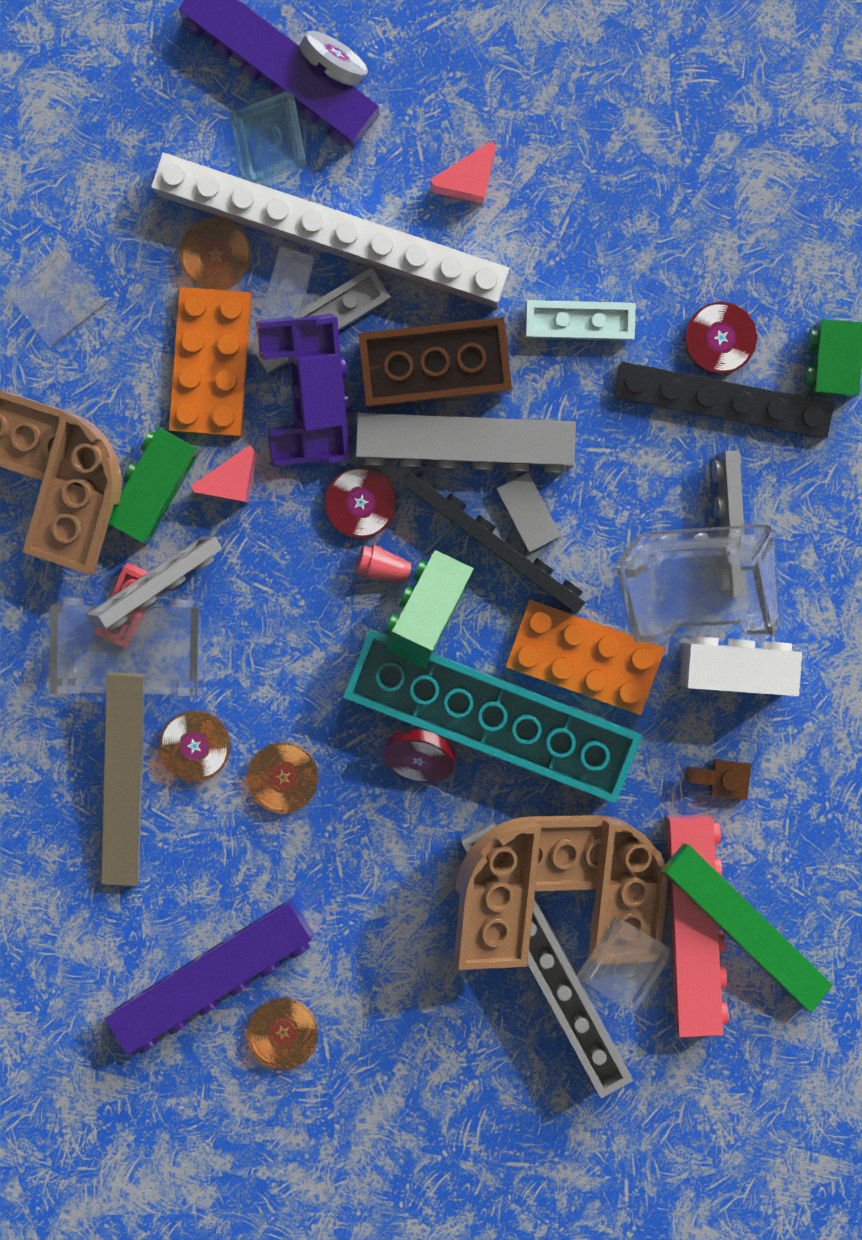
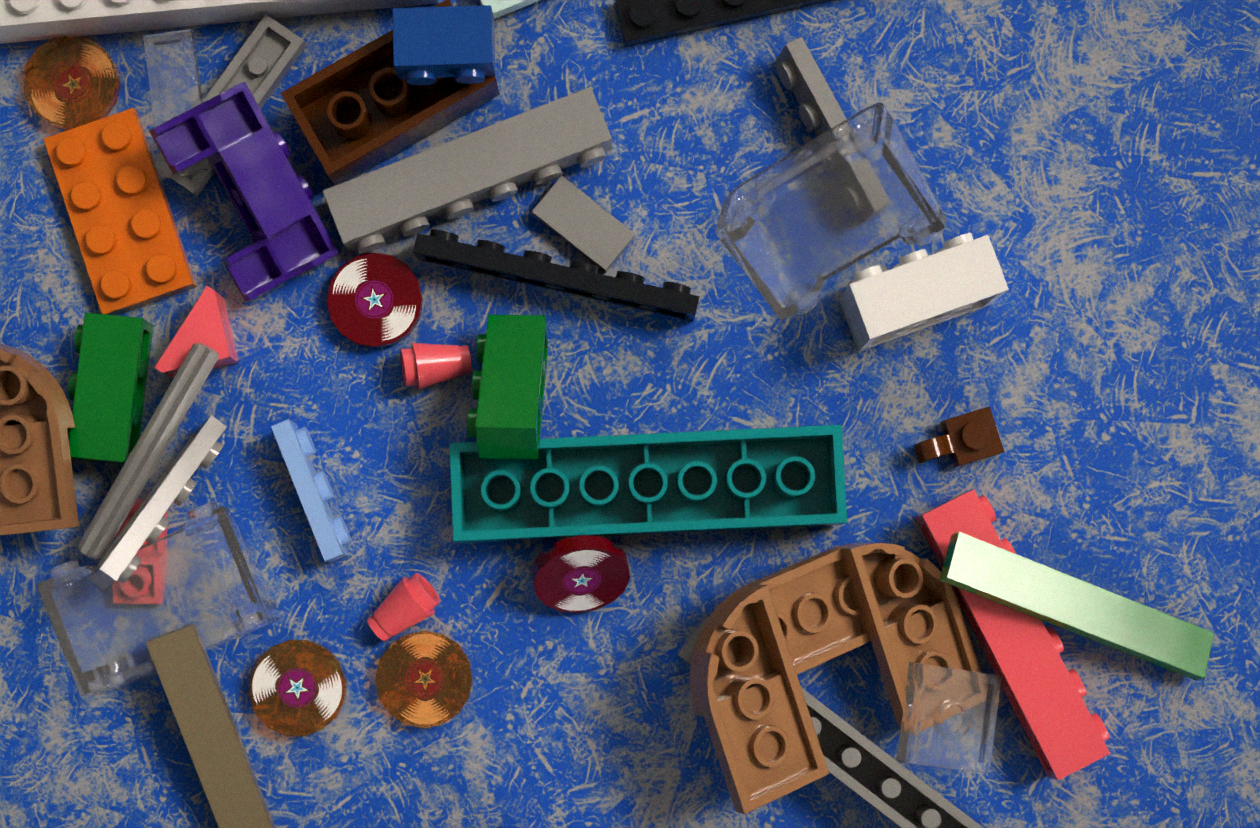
camera: 30 degrees left, 5 degrees down
(162, 542) = (148, 451): none -> light grey axle
(262, 616) = (312, 490): none -> light blue plate
(290, 723) = (405, 606): none -> coral cone
(486, 351) = (444, 43): none -> blue brick
(584, 657) = (729, 367): orange plate -> none

